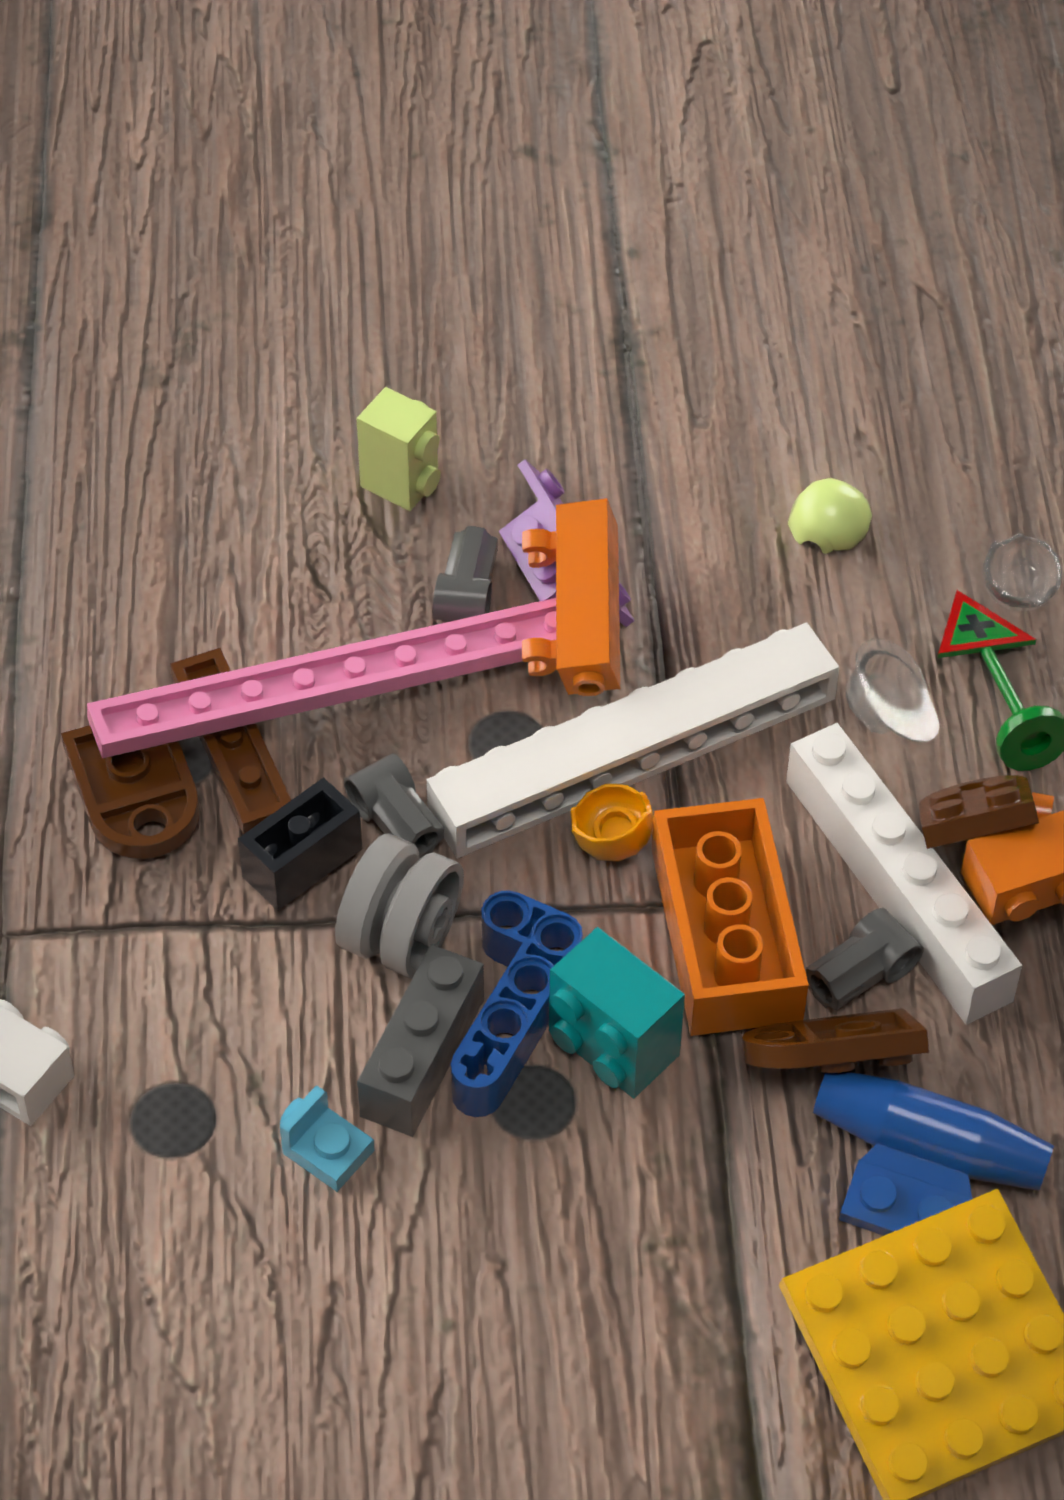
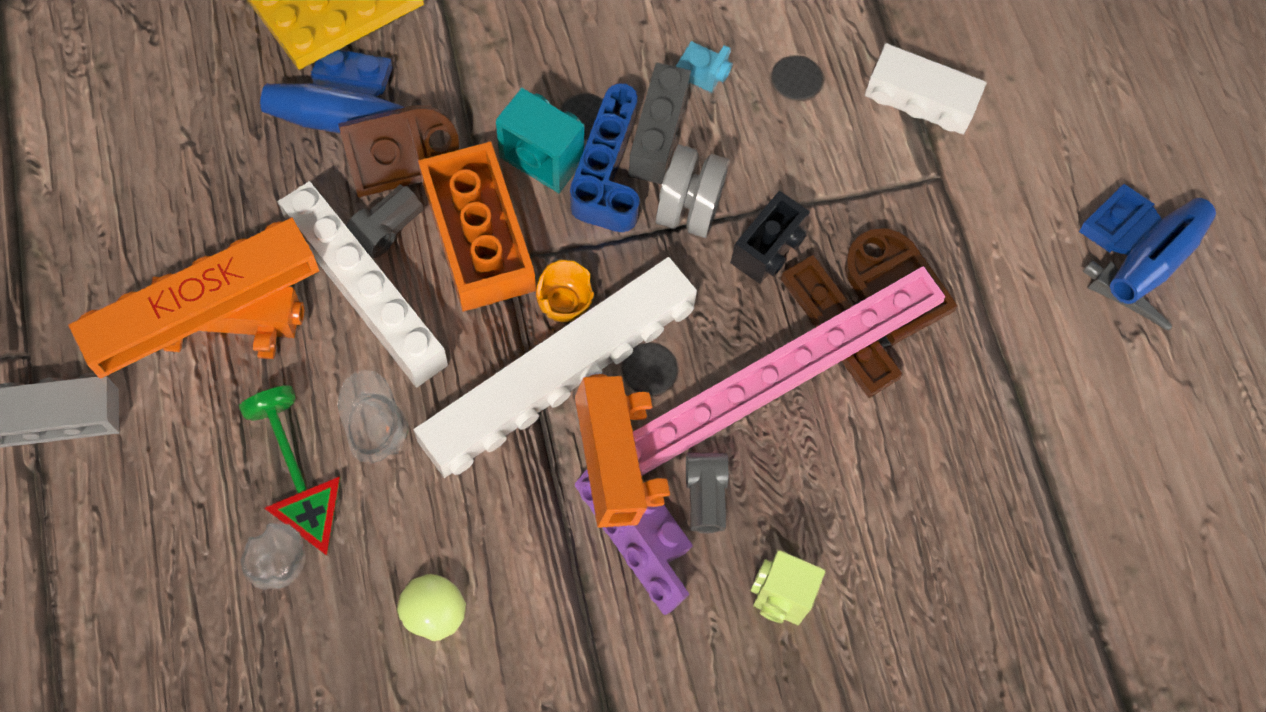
camera: 165 degrees right, 15 degrees up
(390, 798) = (722, 296): dark grey piece -> none
(977, 809) = (306, 308): reddish brown plate -> none

